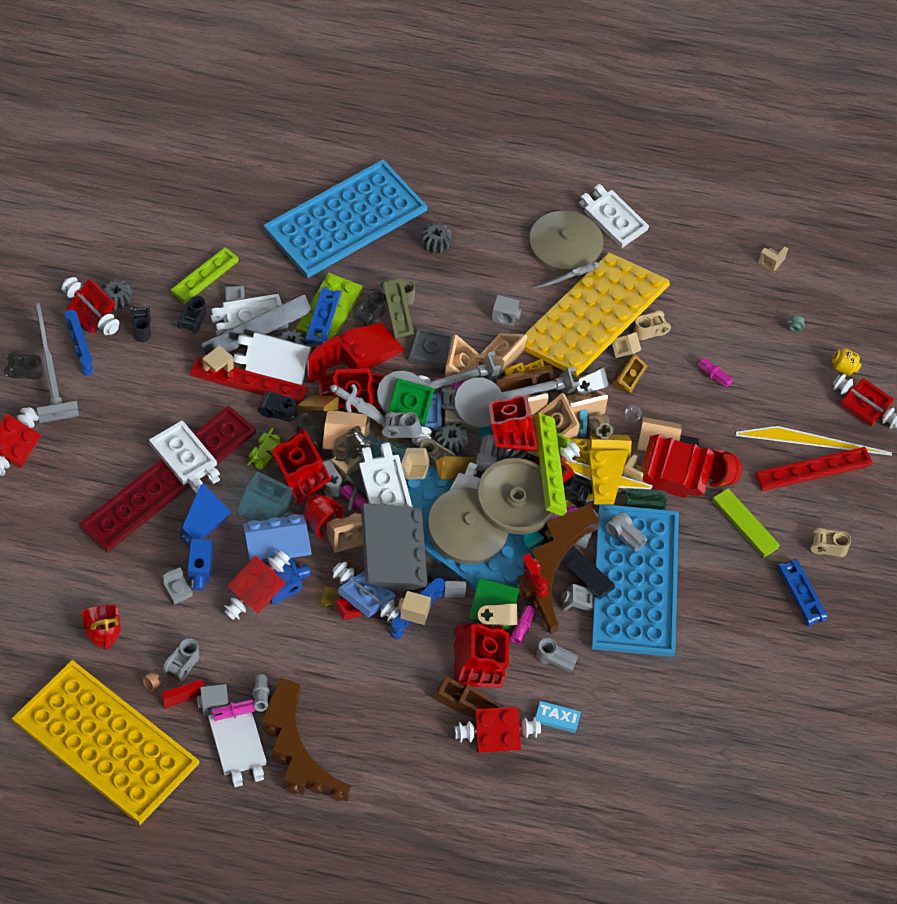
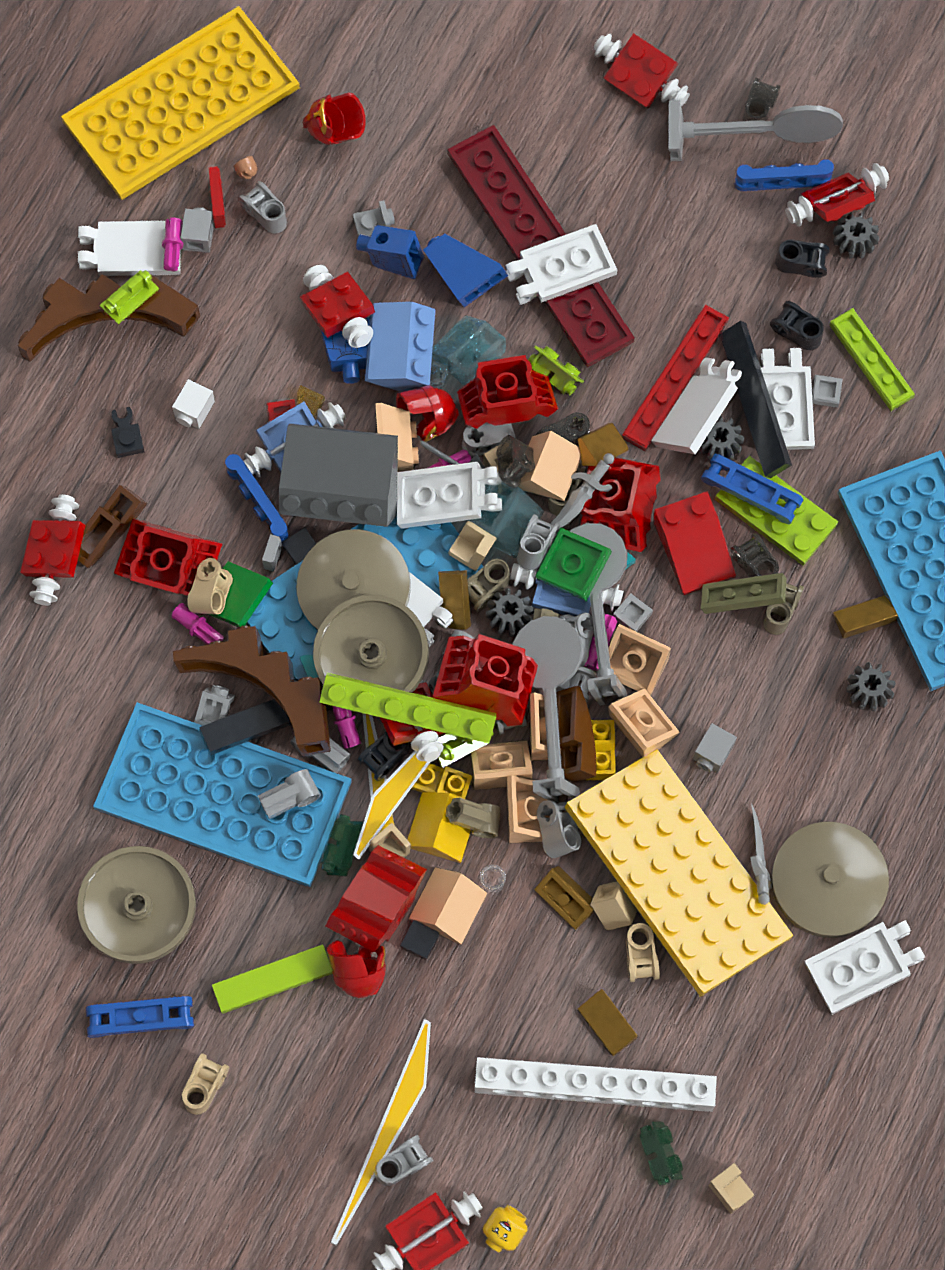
camera: 110 degrees right, 15 degrees up
(218, 359) = (704, 333): tan panel -> none
(261, 692) = (188, 282): light grey pin -> none
(276, 406) = (619, 400): black piece -> none
(288, 721) = (129, 296): none -> lime hinge
(322, 358) = (675, 466): red slope -> none
(357, 667) = (193, 404): none -> white brick
(389, 249) = (865, 616): none -> pearl gold slope
(392, 708) = (126, 437): none -> black plate
(414, 607) = (242, 481): tan brick -> none
(429, 370) = (632, 613): none -> light grey plate
(430, 348) = (680, 629): dark grey tile -> none
(531, 570) = (234, 629): red plate -> none
(558, 656) = (135, 656): light grey piece -> none
(558, 717) = (53, 632): medium azure tile -> none
(582, 419) = (496, 798): medium azure tile -> none
(606, 474) = (389, 796): yellow wing -> none
(699, 336) = (607, 1022): none -> pearl gold slope
(715, 372) = (536, 1021): dark pink axle -> none
(732, 607) = (136, 904): none -> dark tan dish
(742, 333) = (595, 1084): none -> white brick
(760, 297) = (659, 1141): none -> clear green hinge
(796, 323) = (596, 1178): sand green plate -> none
(813, 469) = (335, 1111): red tile -> none
(831, 423) = (404, 1161): none -> light grey piece

